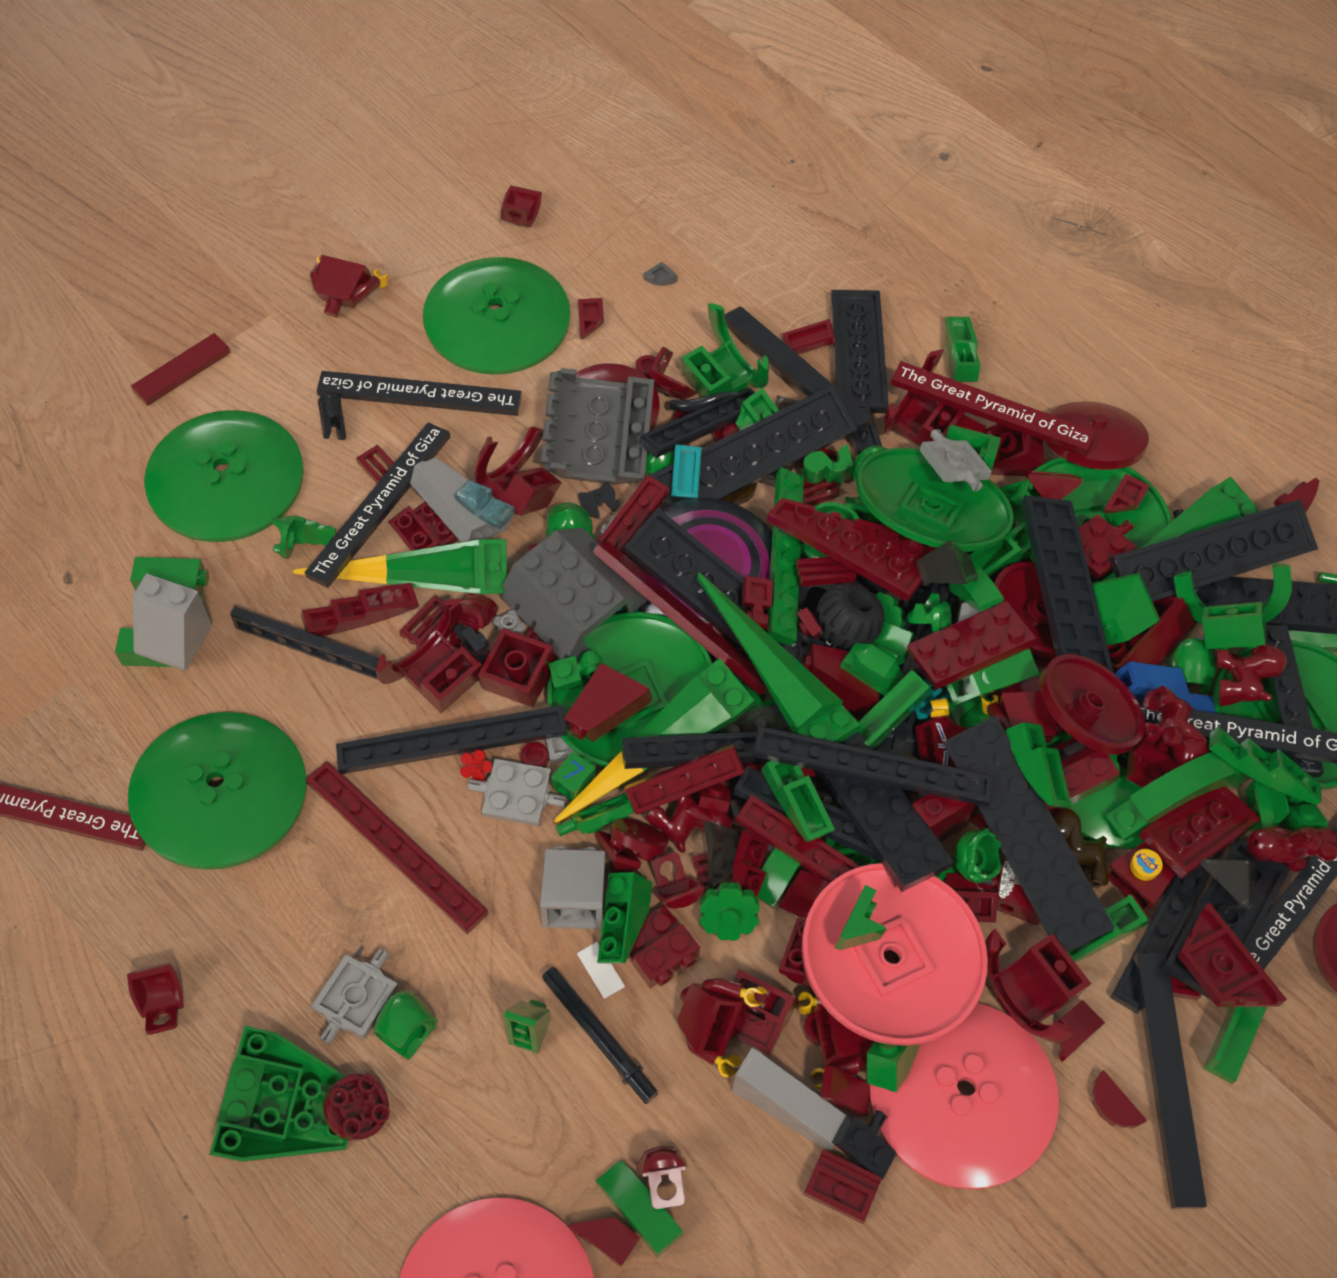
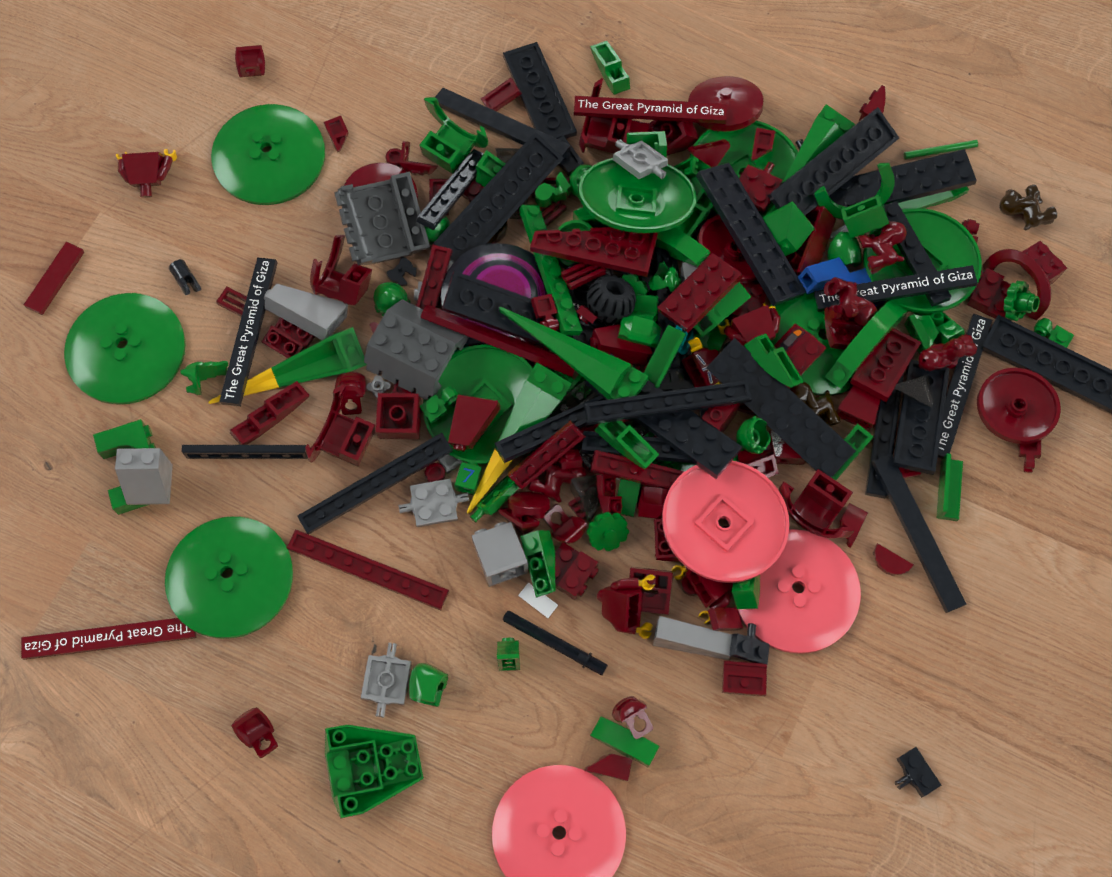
camera: 20 degrees left, 10 degrees up
(356, 1107) = (419, 750): dark red tile -> none
(420, 393) = (238, 235): black tile -> none
(427, 627) = (308, 418): dark red tile -> none
(475, 643) = (363, 410): black plate -> none
(475, 765) = (398, 494): red plant -> none
(480, 503) = (331, 309): clear light blue slope -> none
(660, 275) = (375, 82): dark grey tile -> none
(686, 471) = (458, 232): teal tile -> none
(693, 405) = (440, 178): black animal -> none
(859, 927) = (697, 513): green slope -> none
(947, 565) = (666, 243): clear smoke slope -> none
(1092, 704) = (793, 306): dark red dish -> none
(1146, 864) = (860, 400): yellow tile -> none
(1226, 966) = (931, 449): dark red wing -> none
(1271, 770) = (916, 308): green slope -> none

